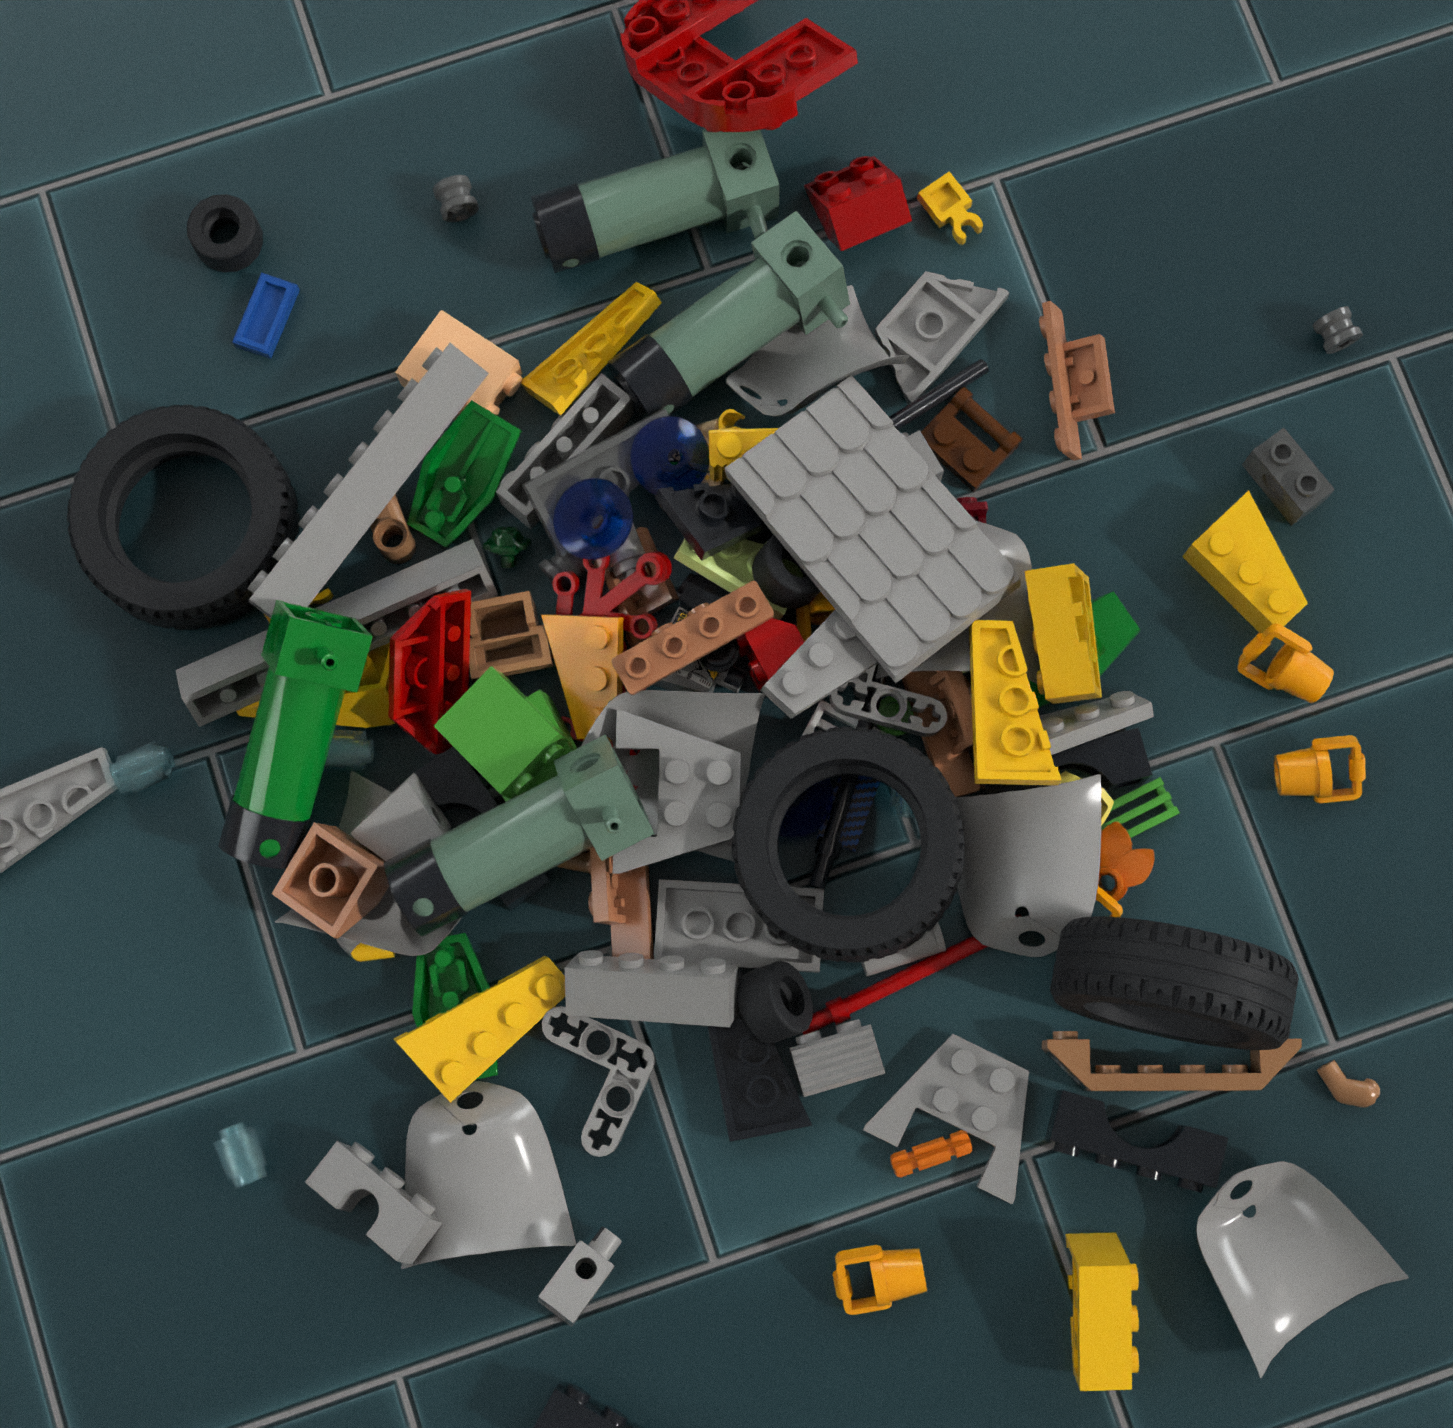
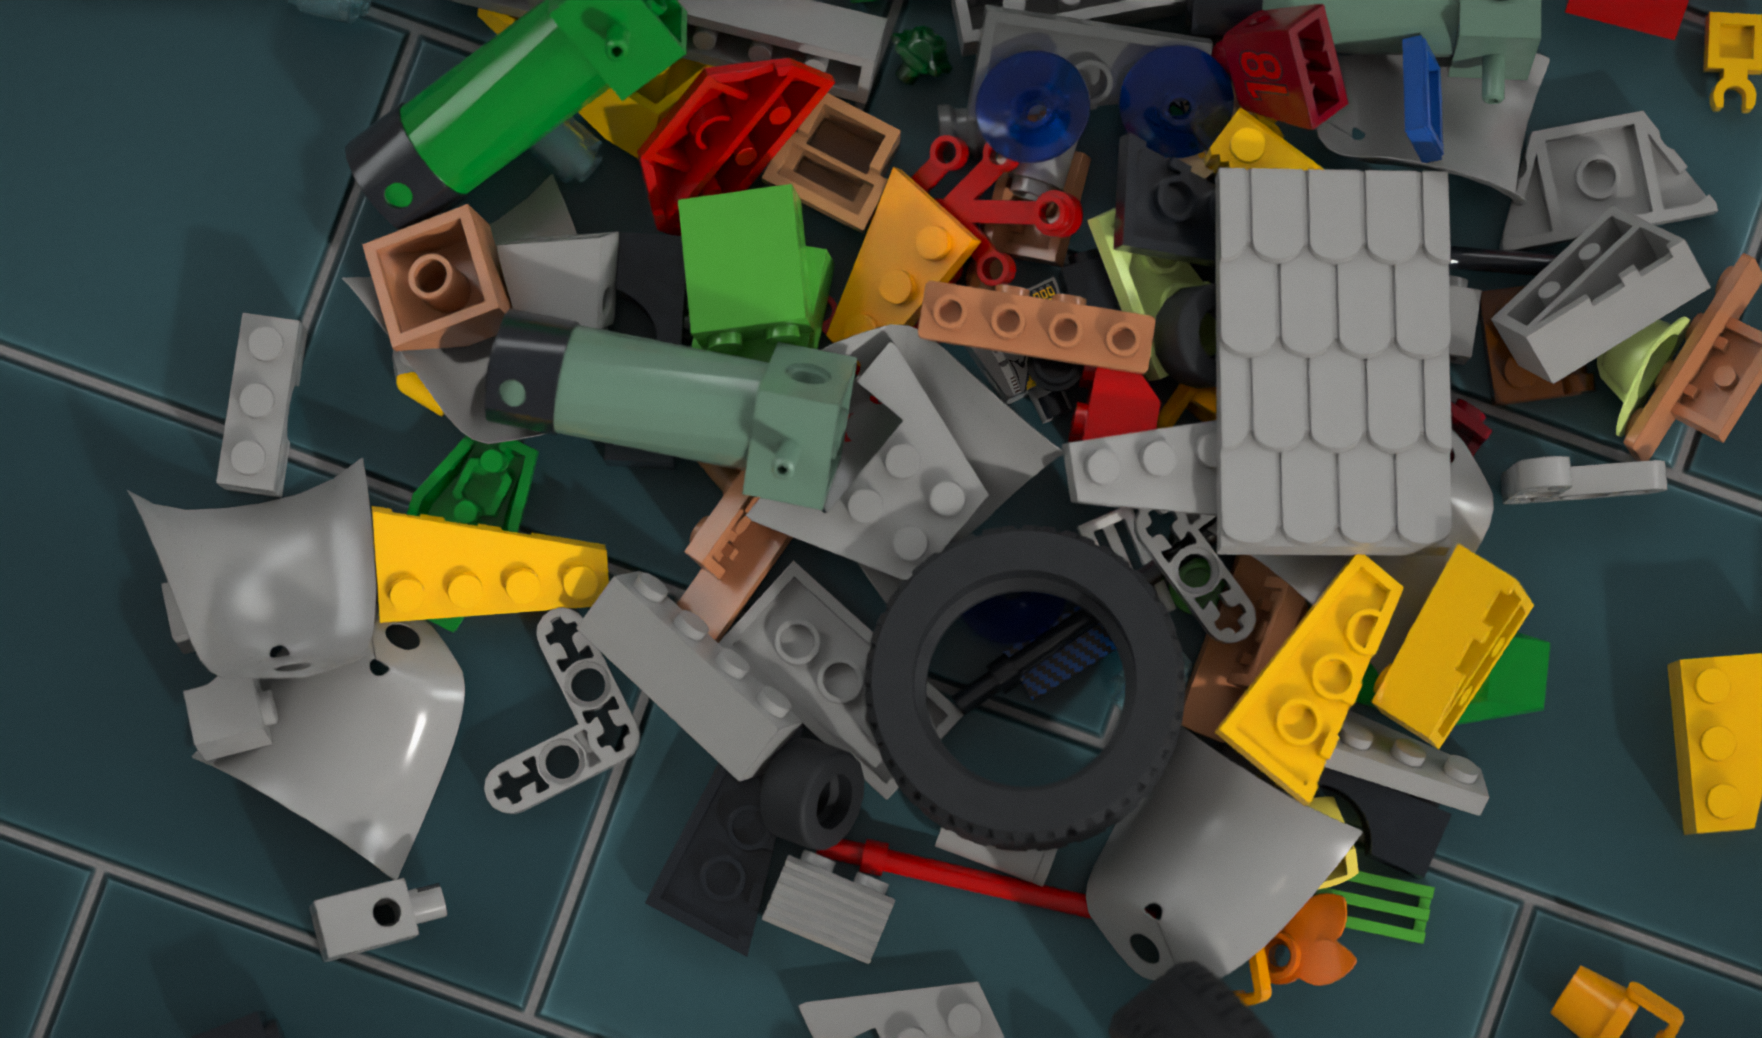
camera: 30 degrees right, 5 degrees up
(241, 1155) = (108, 505): clear light blue brick -> none
(285, 1038) = (259, 403): none -> light grey arch
(367, 1126) = (272, 577): none -> light grey piece
(714, 387) = (1285, 65): none -> dark red torso
(804, 350) = (1422, 99): none -> blue tile
(985, 381) = (1598, 294): none -> light grey wedge
(1028, 402) = (1635, 363): none -> yellowish green piece
(1049, 495) = (1555, 480): none -> light grey beam
(1292, 668) = (1681, 887): light orange piece -> none

